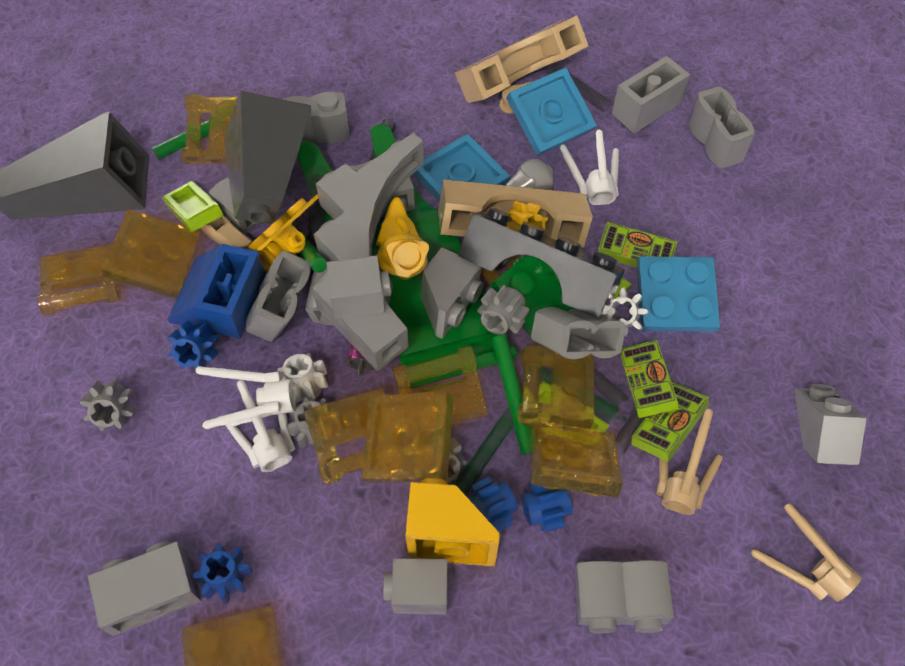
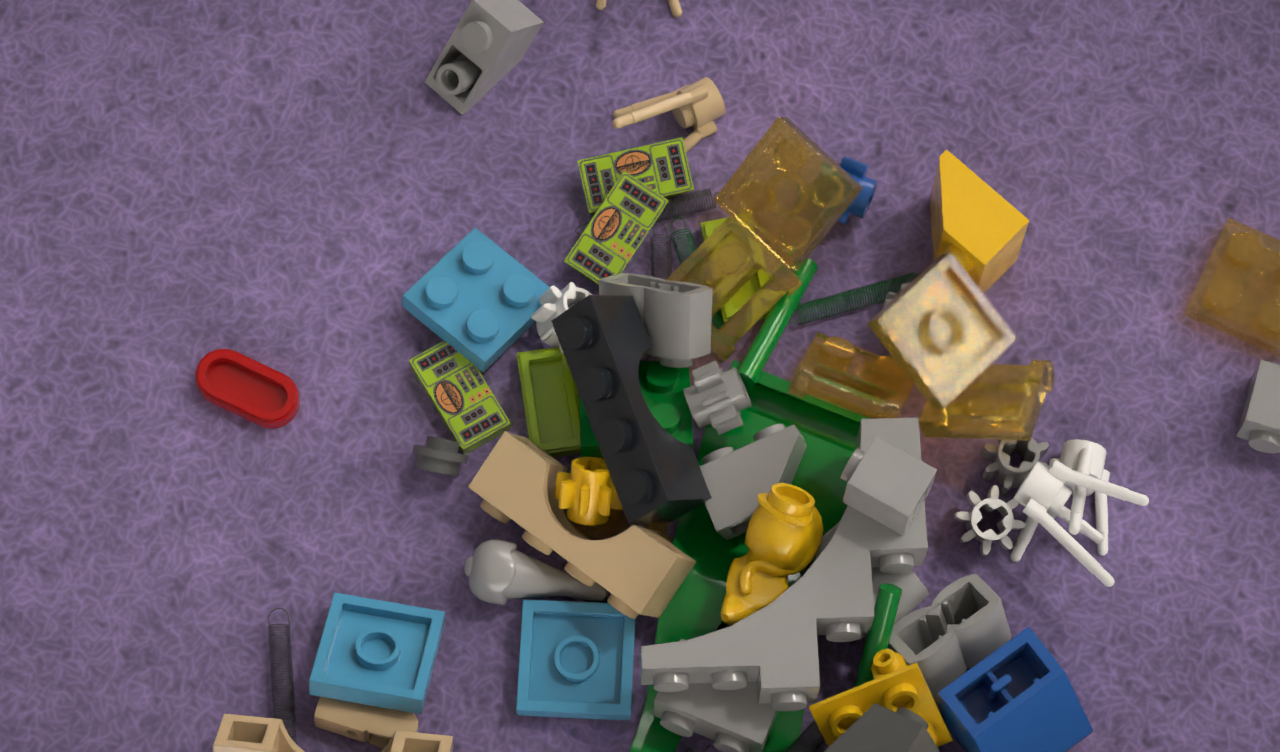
camera: 140 degrees left, 10 degrees up
(108, 404) = (1228, 654): light grey gear -> none
(192, 345) = (1088, 657): blue gear -> none
(226, 561) = (1209, 384): blue gear -> none
(417, 586) = (1046, 209): light grey brick -> none
(494, 502) = (899, 232): blue gear -> none
(600, 186) = (416, 504): white plant -> none
(614, 208) = (439, 456): none -> dark grey plate
(623, 594) = (845, 65): light grey brick -> none
(650, 94) = (227, 569): light grey brick -> none
(721, 127) = (204, 438): light grey brick -> none
(732, 181) = (247, 388): none -> red tile

